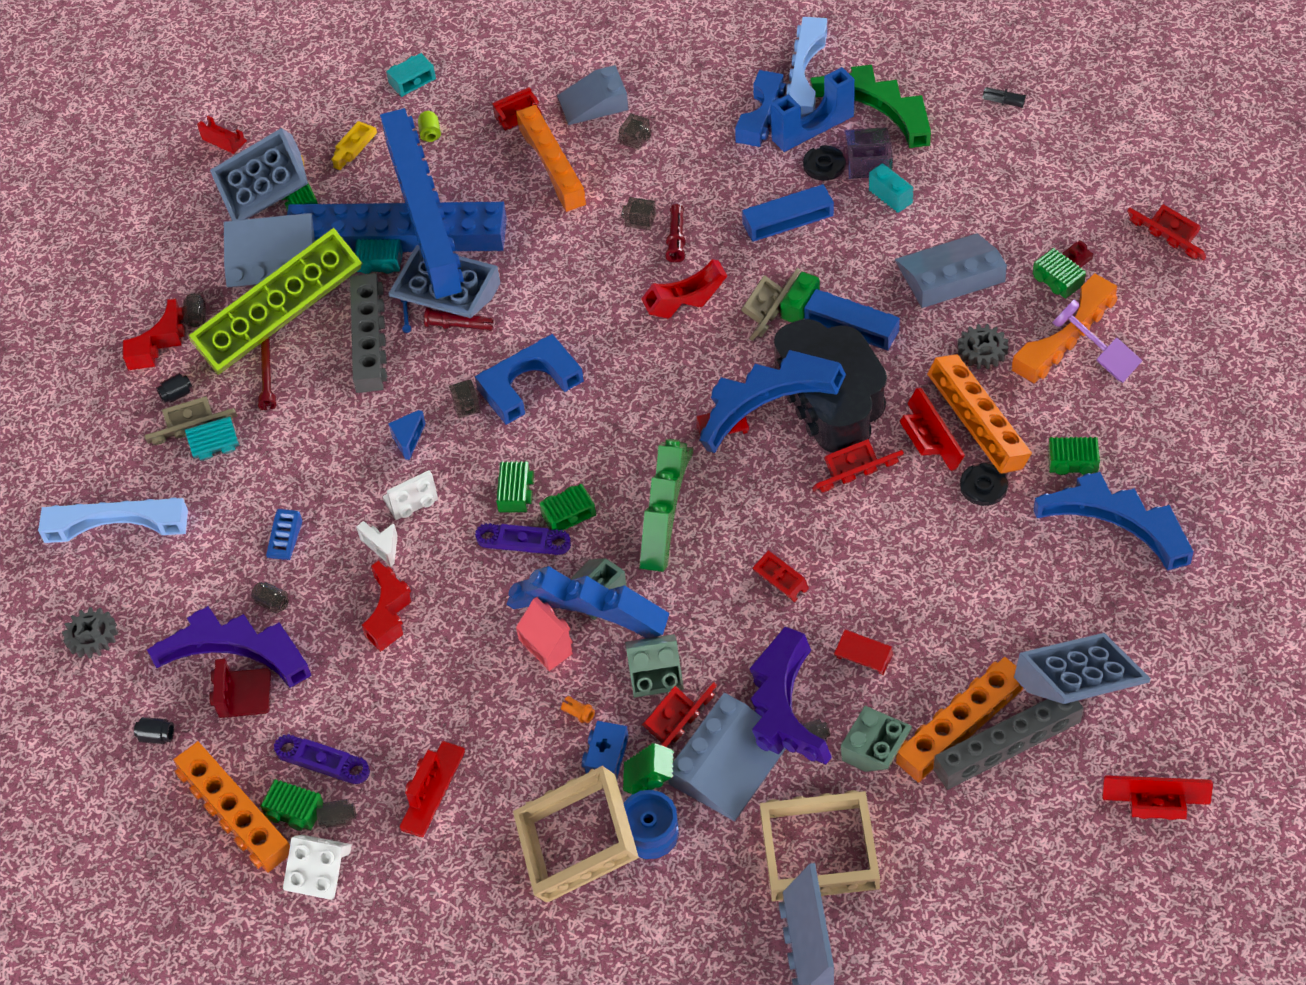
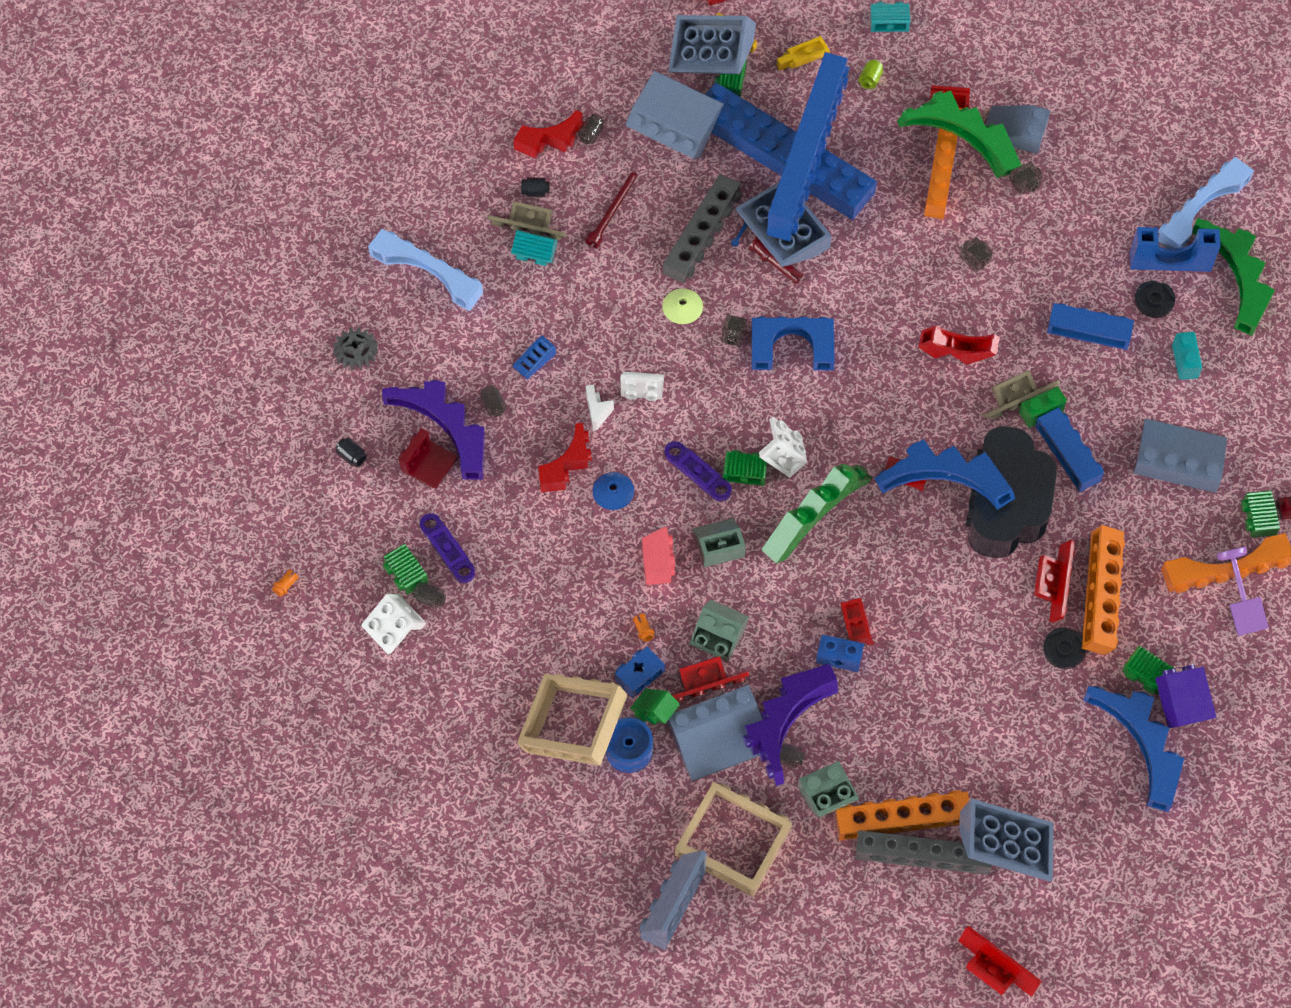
camera: 30 degrees right, 10 degrees up
(169, 904) = (281, 587): none -> orange pin
(198, 760) = (358, 494): orange brick -> none
(275, 301) = (649, 163): lime brick -> none
(379, 255) = (754, 167): teal brick -> none
(386, 411) = (682, 313): none -> yellowish green dish
(407, 432) = (675, 331): blue slope -> none
(429, 786) = (504, 616): red bracket -> none
(452, 615) = (610, 498): none -> blue dish
(513, 487) = (720, 425): green brick -> none
(551, 111) = (966, 123): none -> green arch
(589, 597) = (705, 554): blue arch -> none
(595, 469) = (785, 450): none -> white bracket
(676, 240) = (987, 295): dark red pin -> none
(753, 126) = (1121, 232): blue arch -> none
(787, 610) = (840, 653): none -> blue brick
(852, 461) = (978, 566): red bracket -> none
(864, 651) = (872, 720): red hinge -> none
(867, 150) = (1195, 310): clear purple slope -> none
(983, 346) = (1151, 544): dark grey gear -> none
(1126, 453) = (1185, 696): none -> dark purple brick

